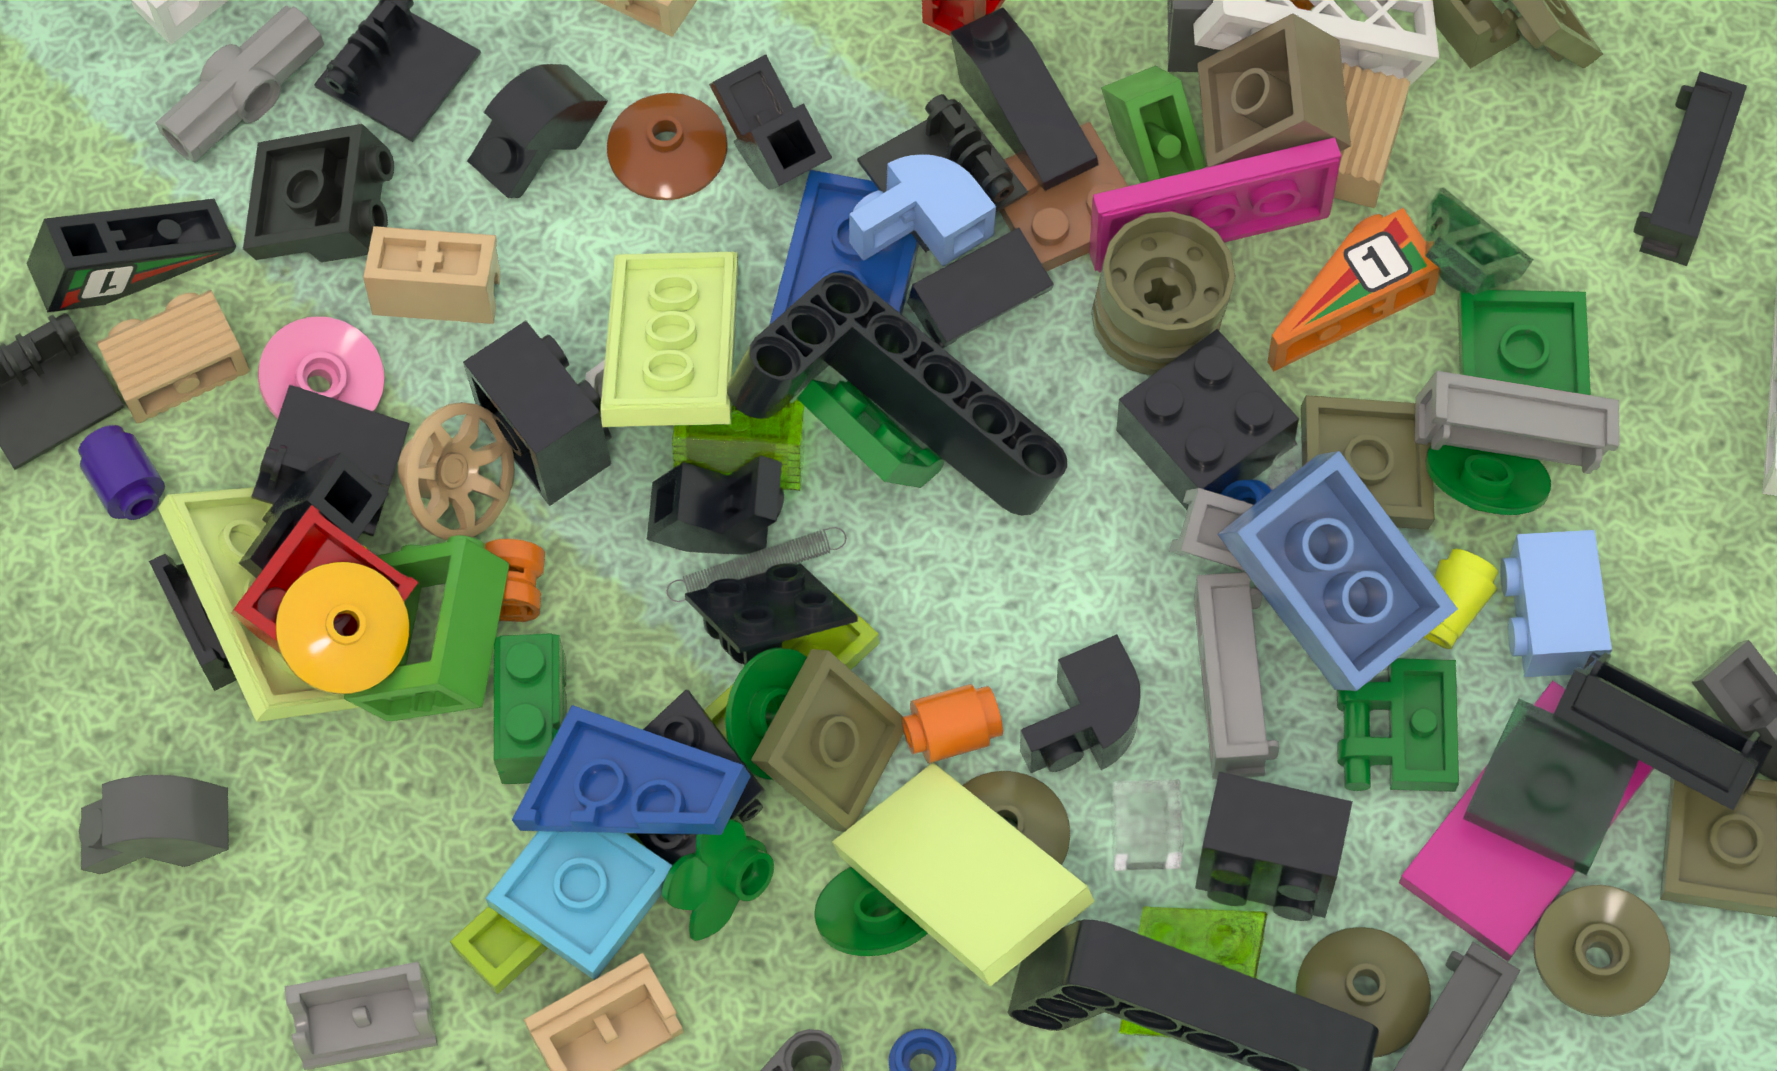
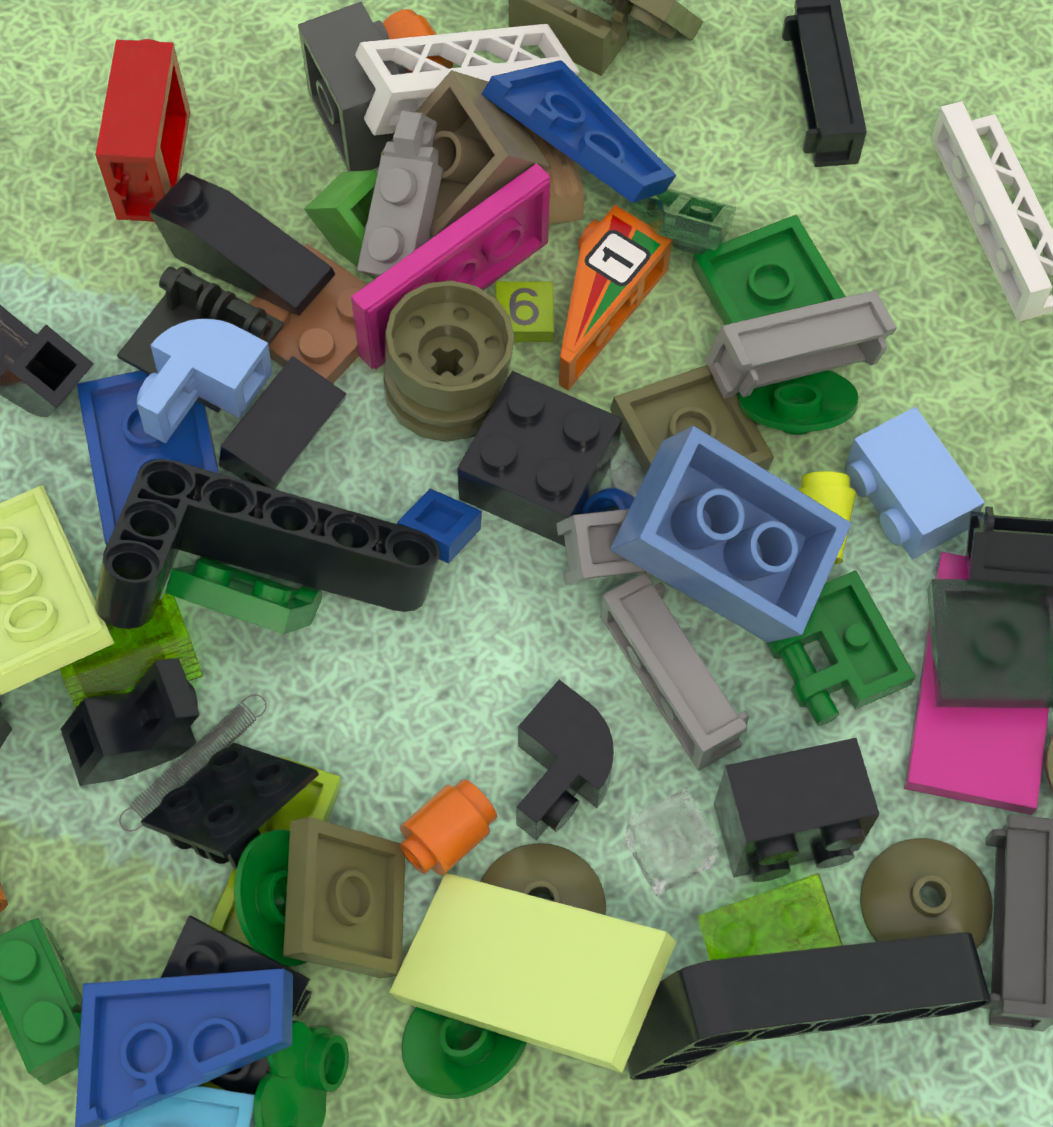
camera: 30 degrees left, 0 degrees up
(1087, 444) = (445, 521): none -> blue plate
(1194, 115) = (402, 195): none -> light grey hinge
(1269, 276) = (529, 308): none -> lime tile
(1403, 117) = (581, 126): none -> blue wing

